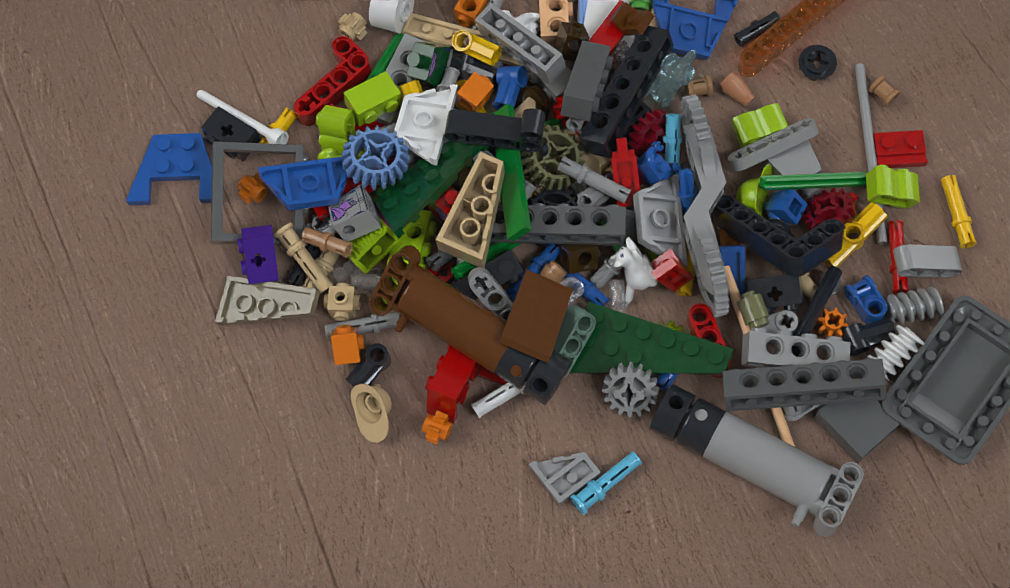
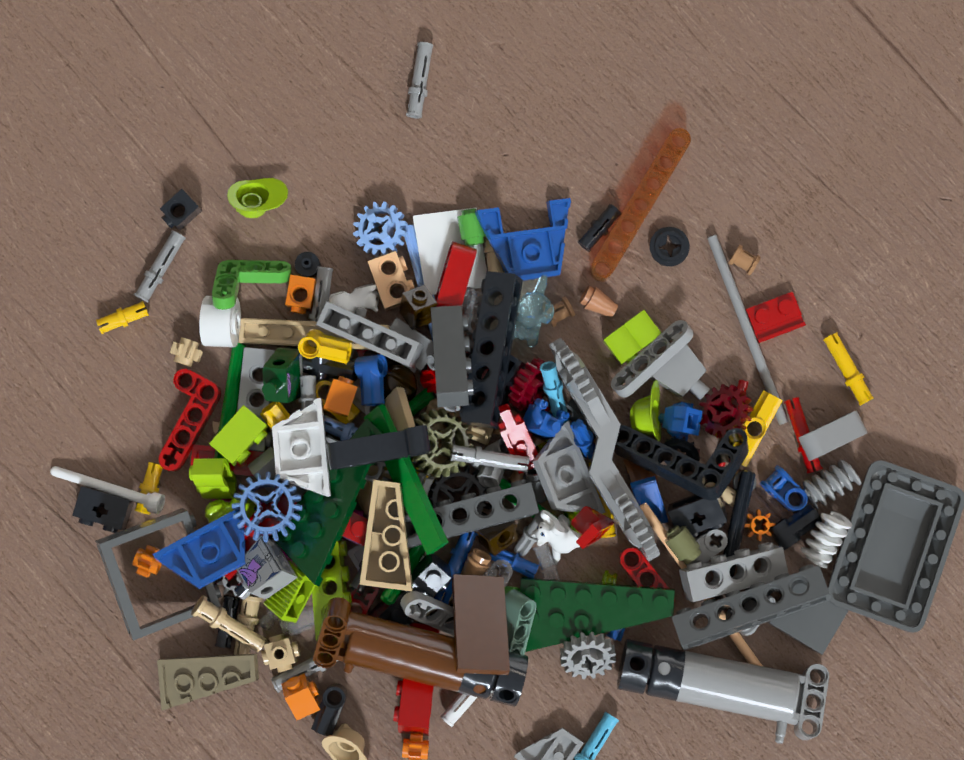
camera: 25 degrees left, 15 degrees up
(172, 159) = (56, 550): blue wing -> none
(258, 241) = (183, 636): dark purple brick -> none
(327, 242) = (248, 607): medium nougat pin -> none
(631, 21) = (474, 270): reddish brown bracket -> none
(808, 181) = (703, 385): green axle -> none
(892, 187) = (779, 365): lime brick -> none

